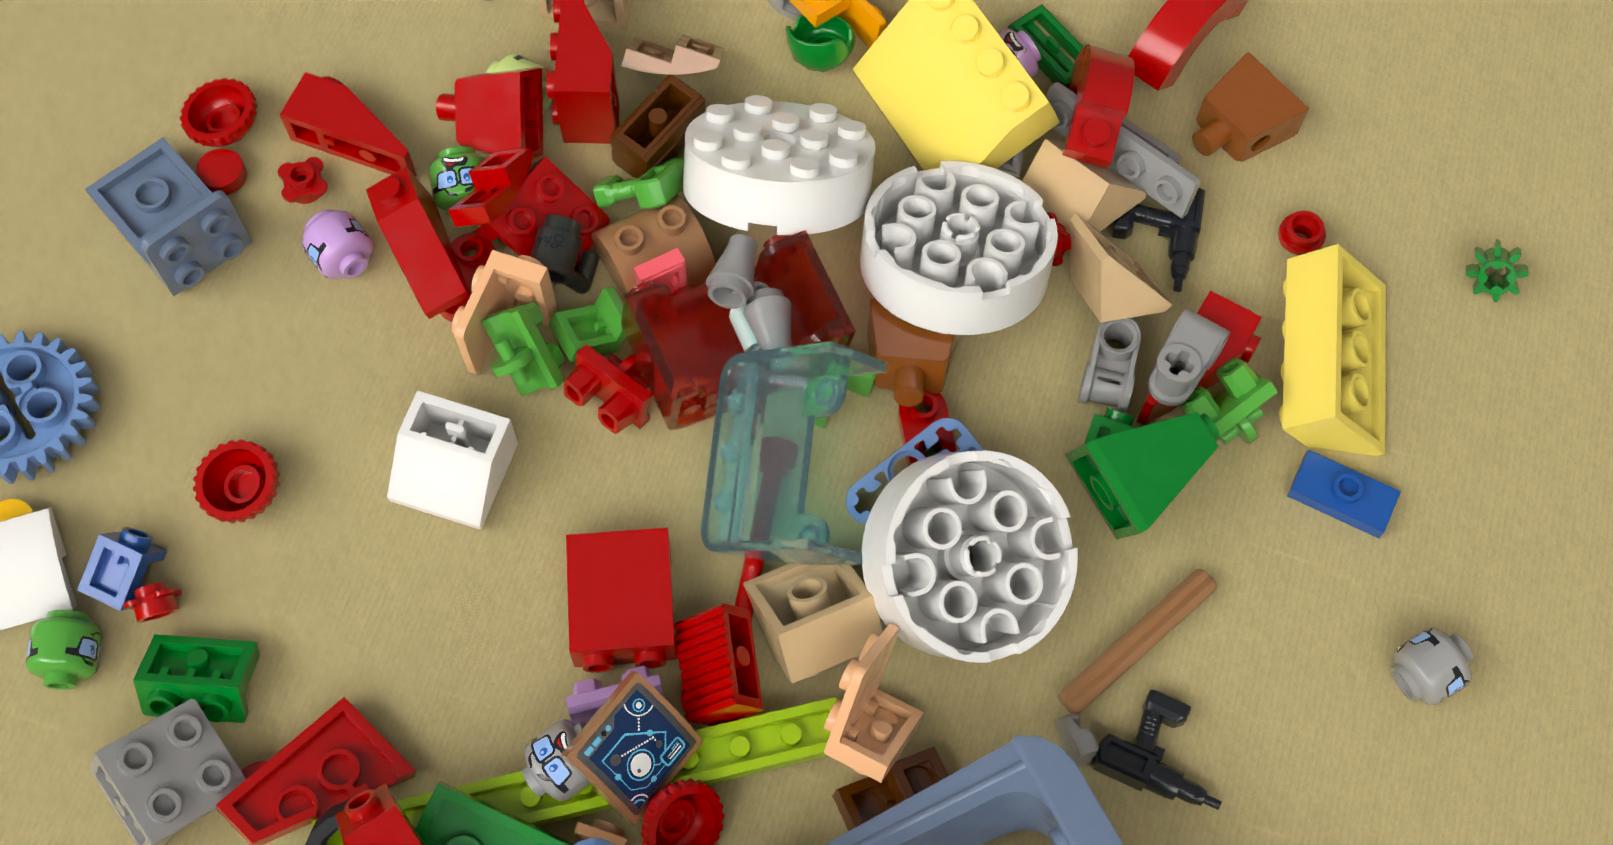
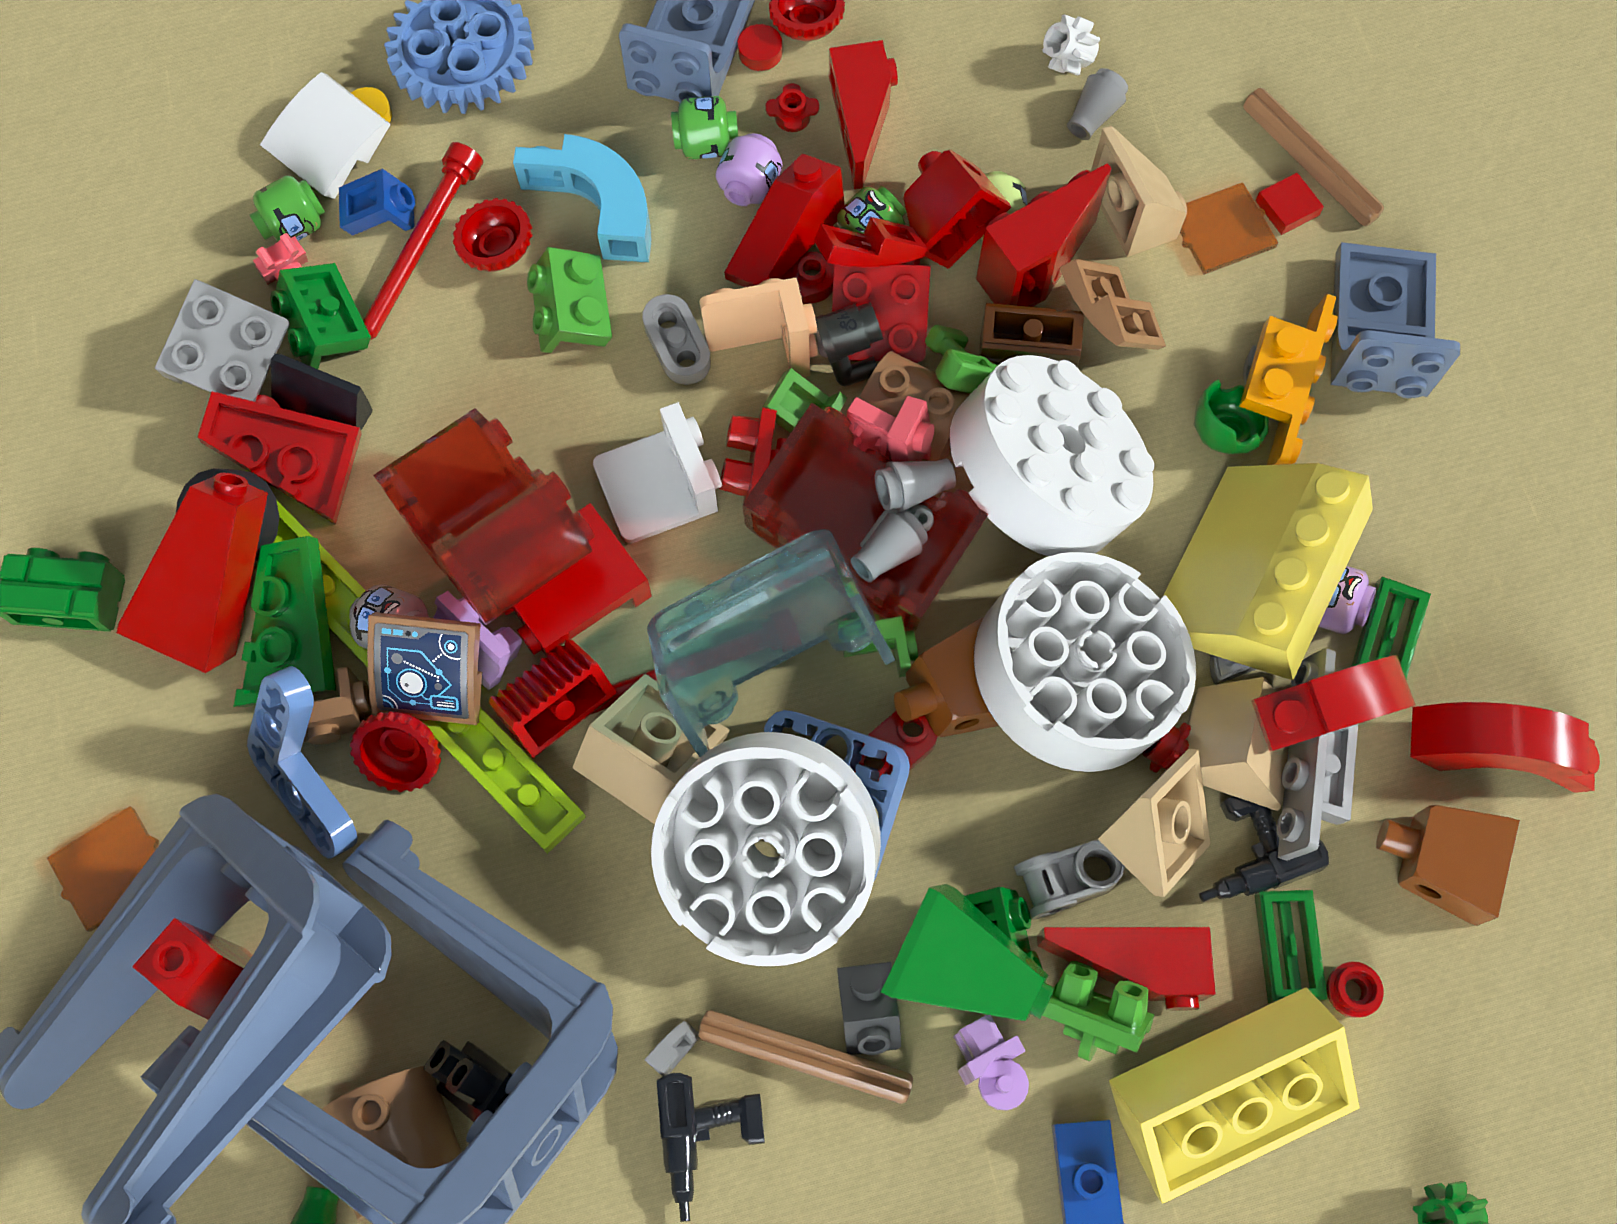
camera: 60 degrees right, 5 degrees up
(117, 679) = (282, 255): none -> coral plate
(141, 474) = (459, 167): none -> red piece
(153, 602) = (360, 245): red plate -> none
(261, 361) = (601, 177): none -> medium azure arch
(270, 254) = (703, 127): none -> bright green head
(277, 718) = (317, 392): none -> black slope
(344, 456) = (569, 299): none -> bright green bracket
(450, 459) = (607, 375): white slope -> none
(455, 384) = (678, 342): none -> light grey plate
(522, 349) = (734, 363): bright green hips -> none
(531, 625) = (485, 515): none -> clear red windscreen
(574, 472) = (659, 479): none -> white bracket
(693, 247) = (911, 432): none -> coral plate
(870, 725) = (574, 848): light nougat bracket -> none
(907, 777) = (532, 912): reddish brown slope -> none
(1128, 568) = (868, 1015): none -> dark grey bracket
(1186, 357) = (1120, 939): light grey piece -> none
(1221, 500) = (989, 1058): none -> lavender hips
(1243, 261) = (1269, 945): none -> green tile

